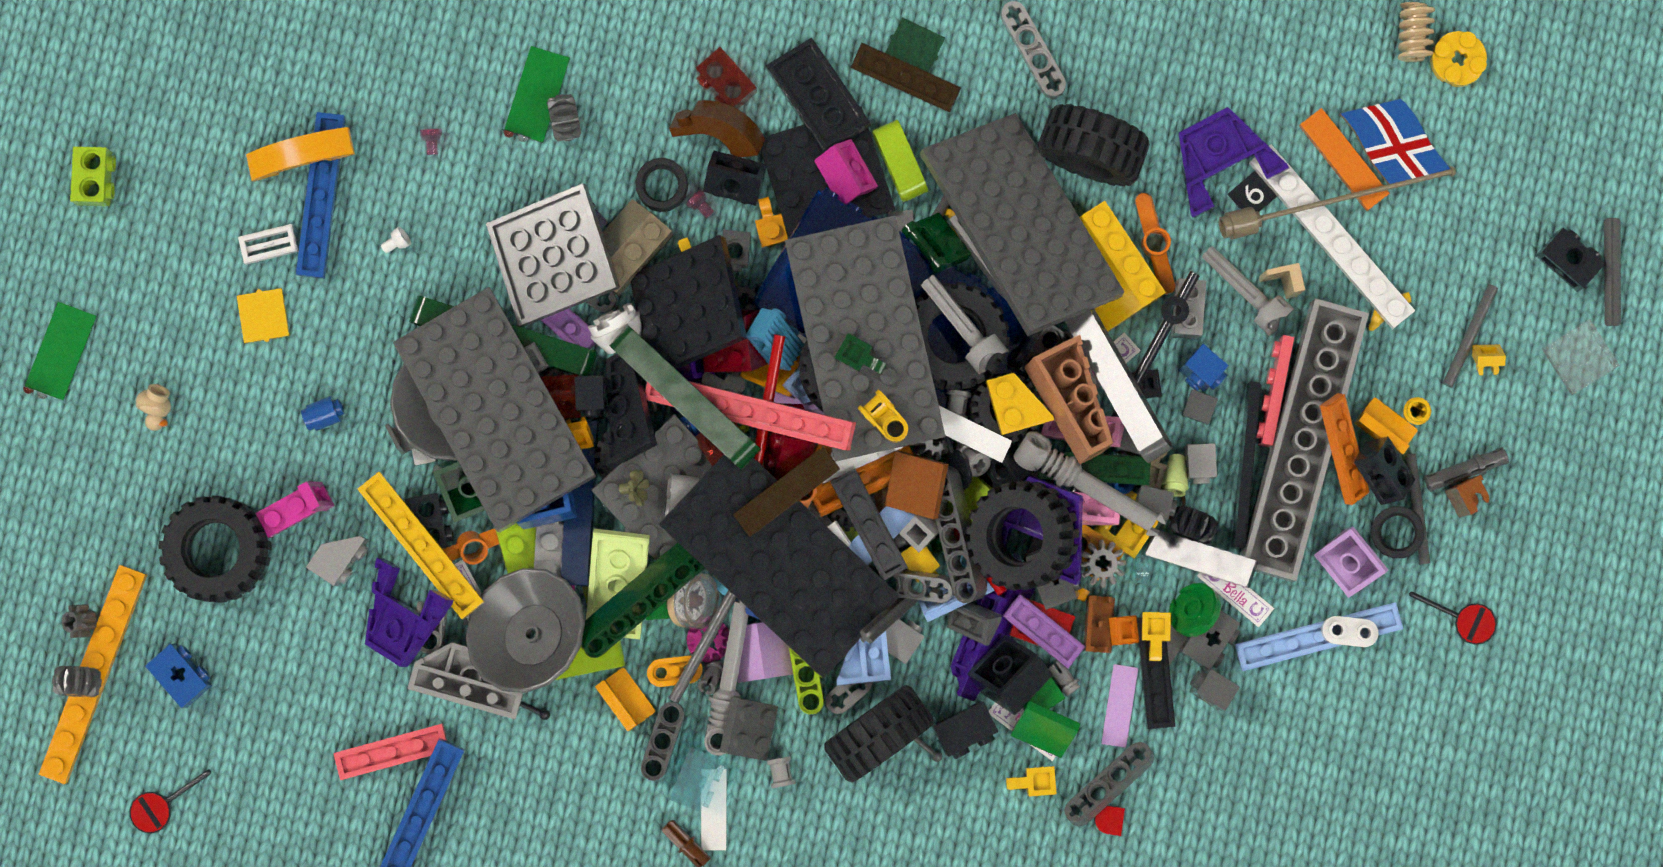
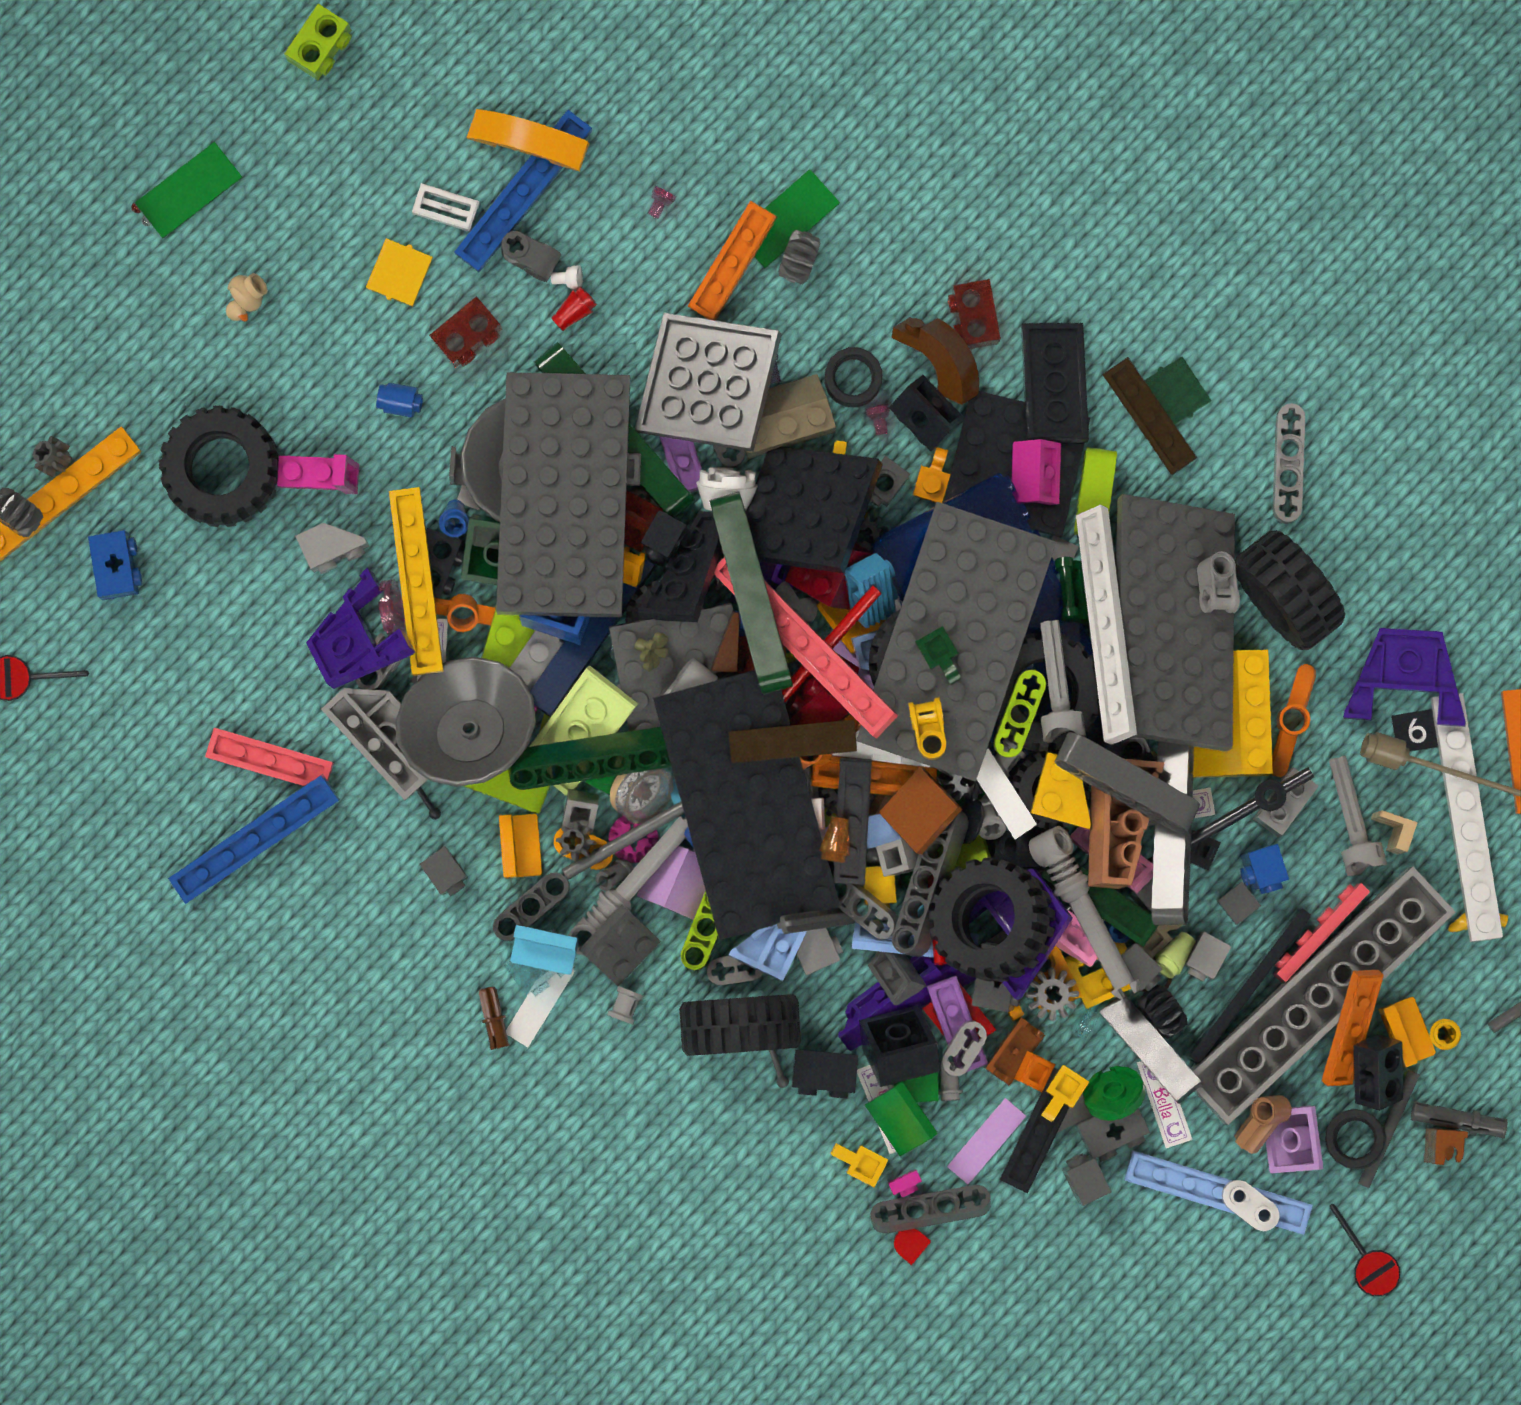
camera: 30 degrees right, 0 degrees up
(335, 328) = (460, 326): none -> clear red brick
(360, 241) = (535, 258): none -> dark grey piece
(414, 576) = (391, 607): none -> clear pink tile
(415, 261) = (574, 308): none -> red cone
(421, 479) = (454, 519): none -> blue cone
(514, 152) = (732, 261): none -> orange tile
(579, 755) = (444, 872): none -> dark grey brick
(655, 644) = (585, 814): none -> light grey plate
(660, 665) = (573, 834): none -> dark grey gear
(693, 768) = (544, 950): none -> medium azure panel
(694, 454) = (727, 652): none -> reddish brown piece
(866, 547) = (836, 841): none -> clear orange cone
(936, 344) = (1032, 709): none -> lime beam
(971, 256) = (1106, 625): none -> white plate
(1039, 174) = (1219, 589): none -> light grey piece
(1062, 367) = (1127, 783): none -> dark grey beam
(1067, 646) = (957, 1044): none -> light grey beam
(1078, 776) = (905, 1184): none -> dark pink plate
(1319, 563) = (1261, 1122): none -> medium nougat piece

